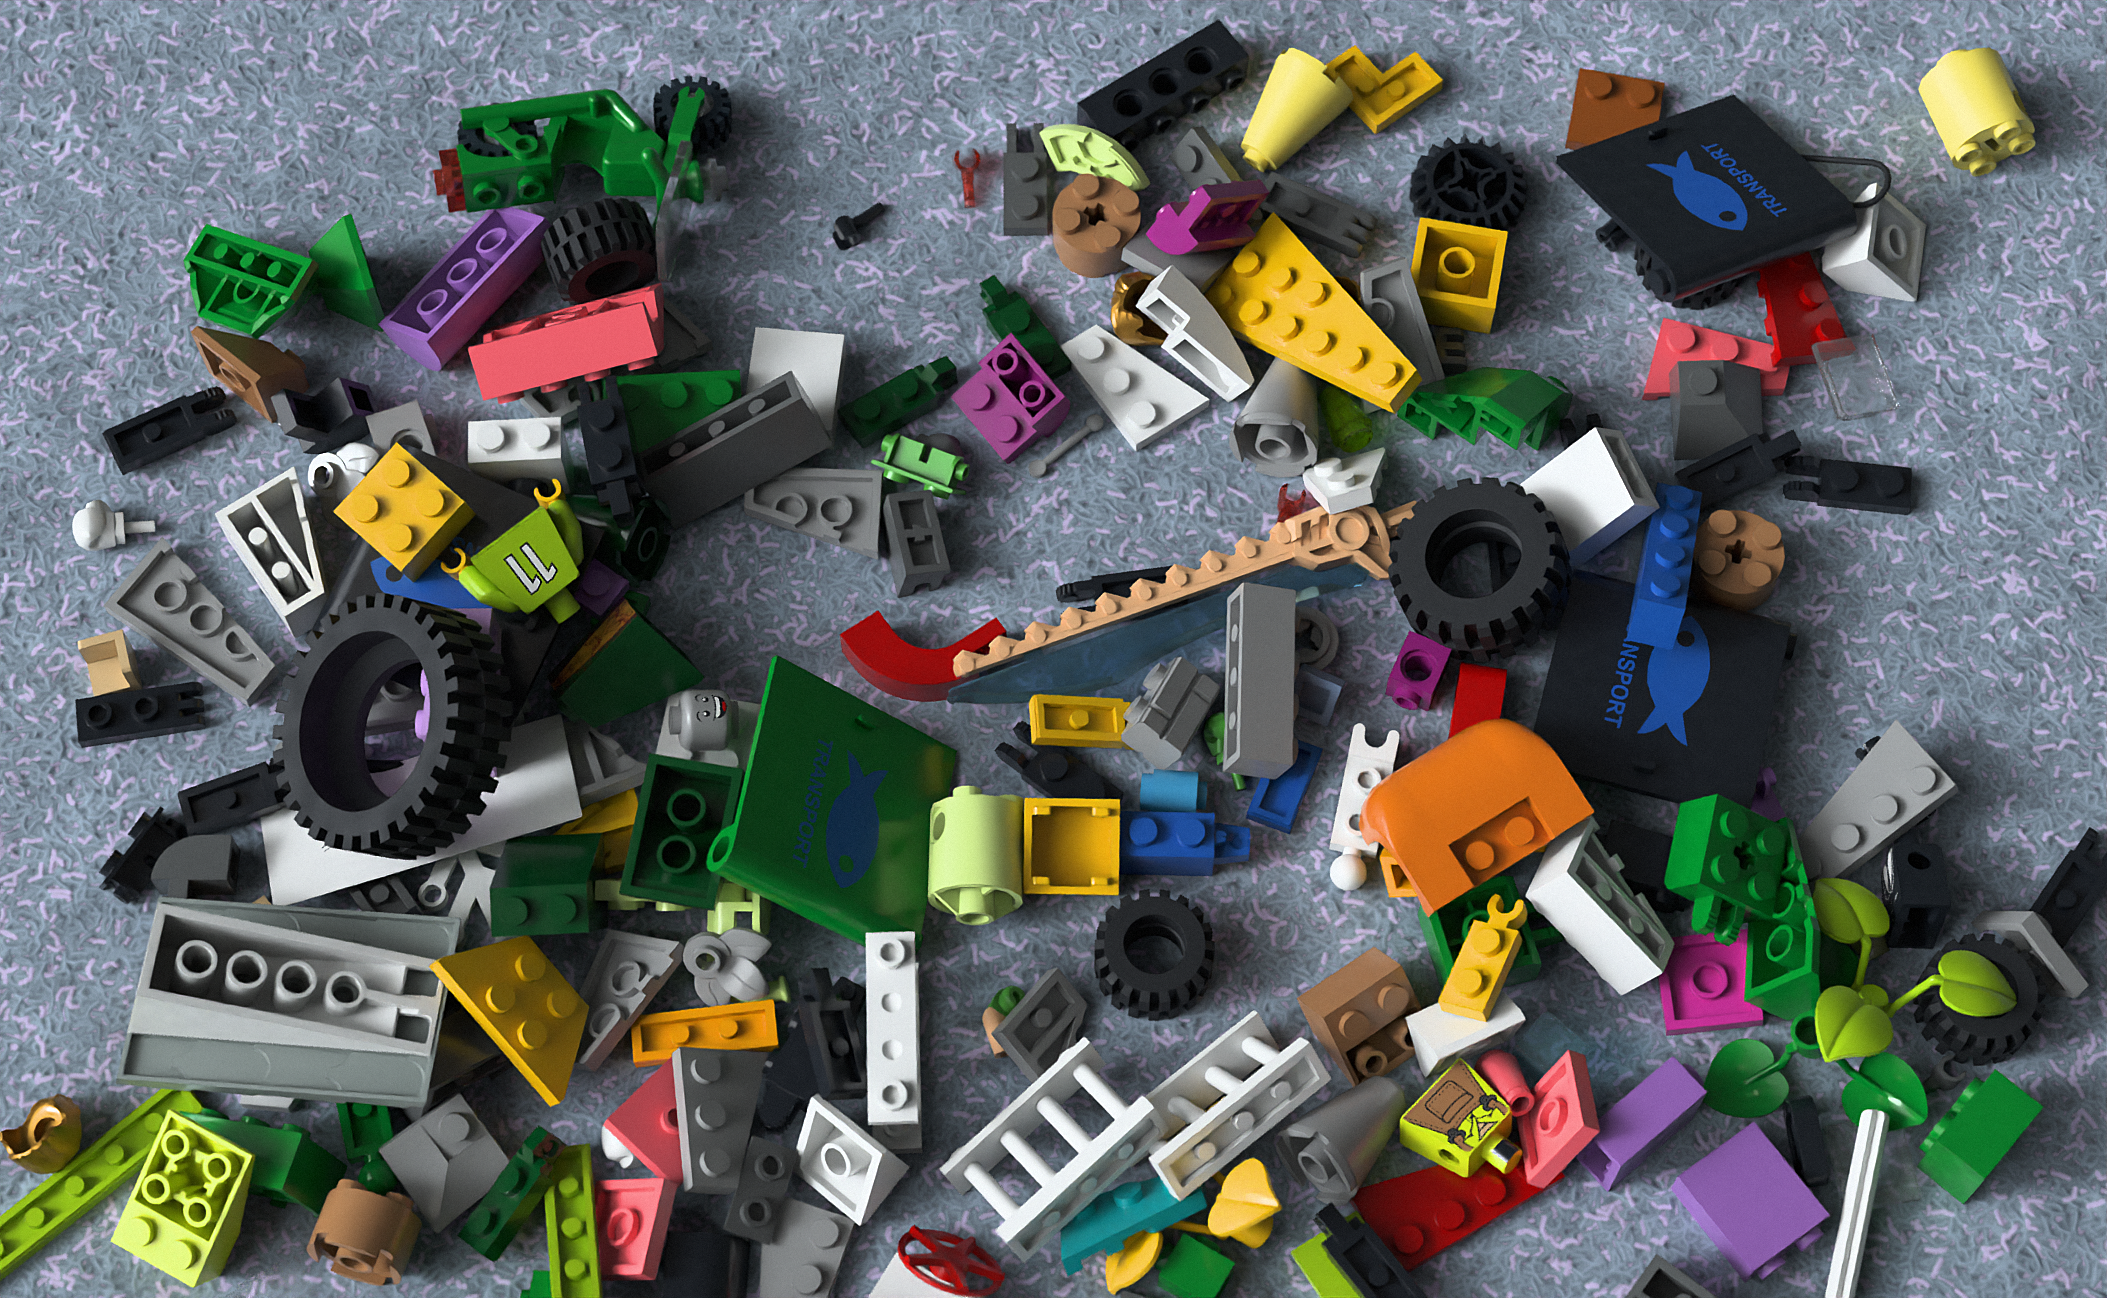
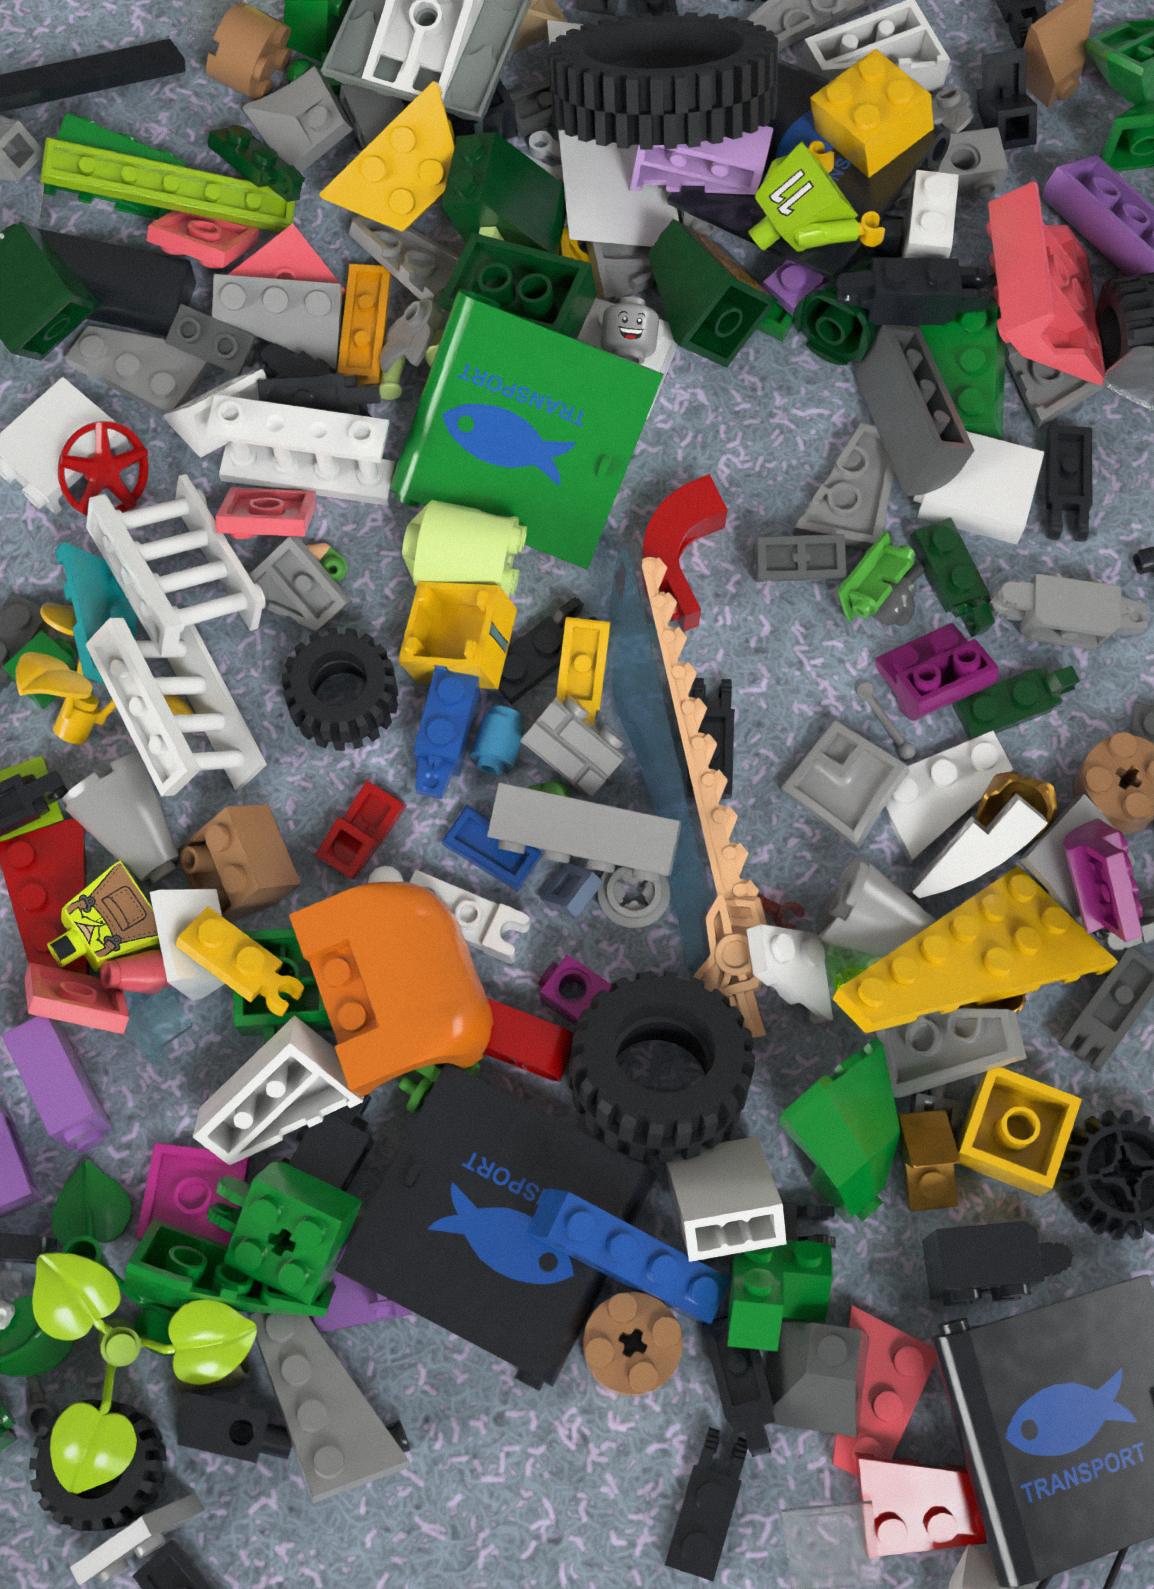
camera: 100 degrees right, 5 degrees up
(772, 307) = (1068, 478): none -> black hinge
(923, 291) = (1069, 610): none -> light grey hinge
(966, 1074) = (265, 512): none -> coral plate
(1143, 467) = (845, 782): none -> light grey plate
(1296, 913) = (361, 830): none -> red slope
(1497, 344) = (928, 1160): none -> pearl gold slope
(1583, 281) = (989, 1260): none -> black hinge
(1664, 448) = (775, 1285): none -> green brick

